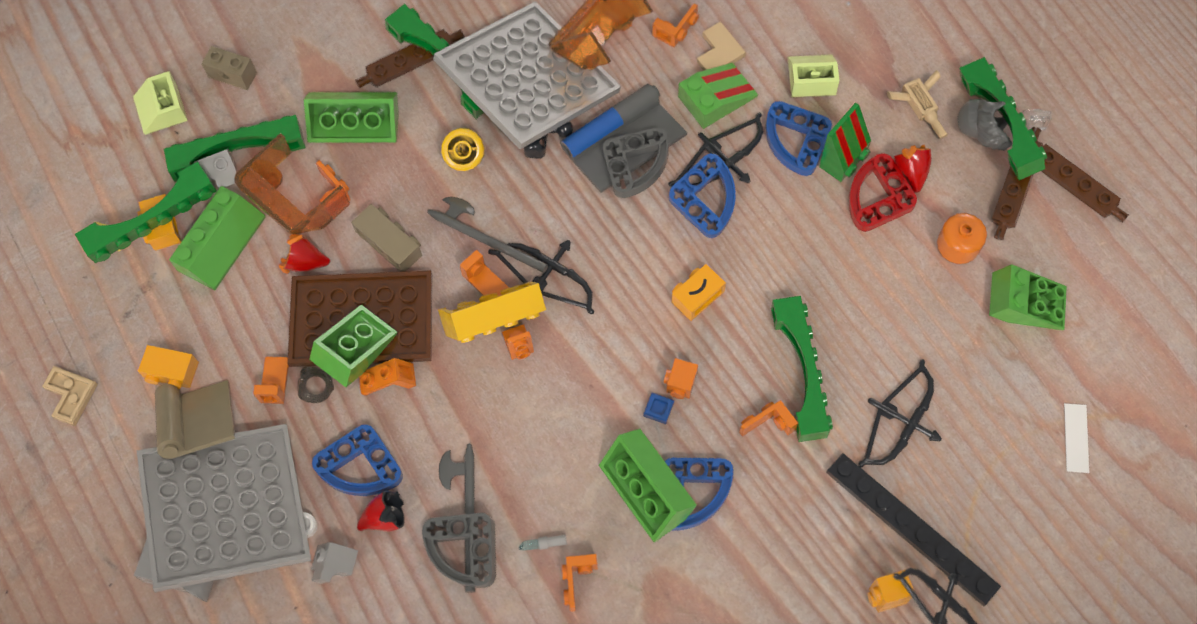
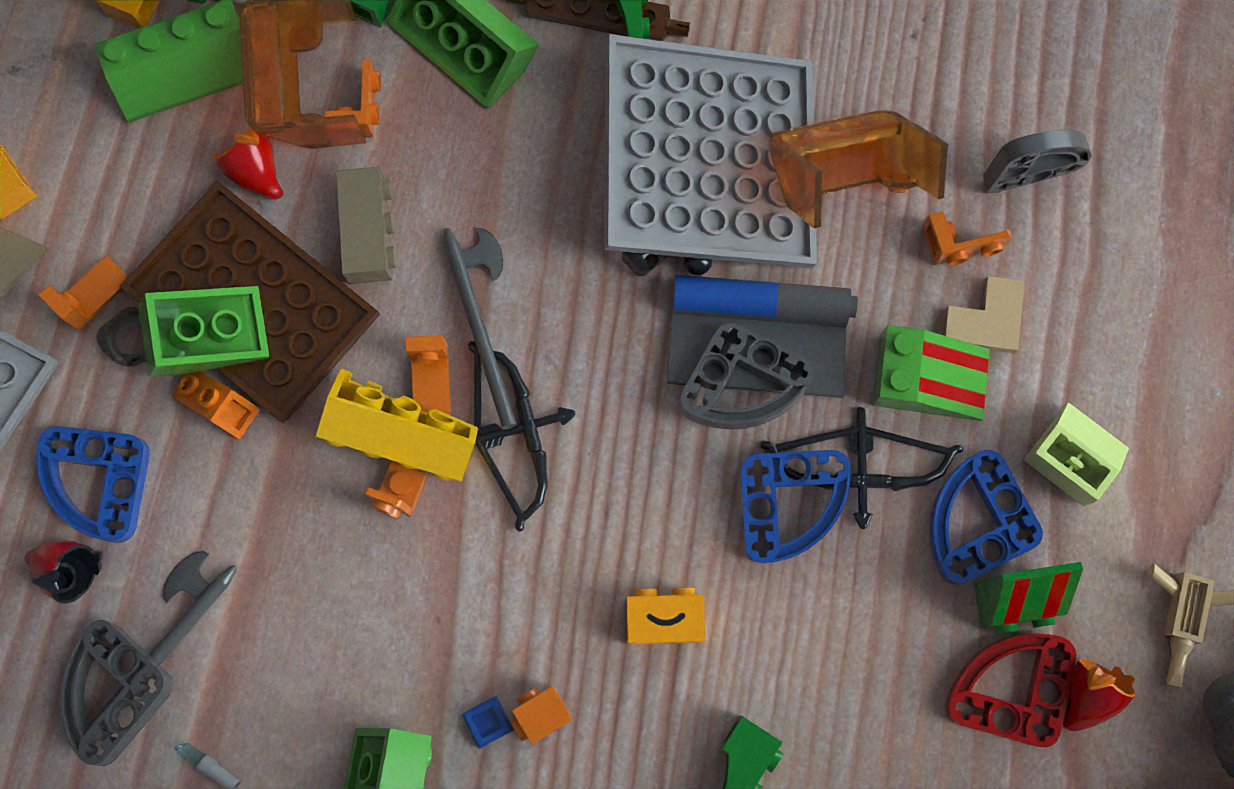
camera: 40 degrees right, 10 degrees up
(462, 138) = (551, 180): yellow head -> none

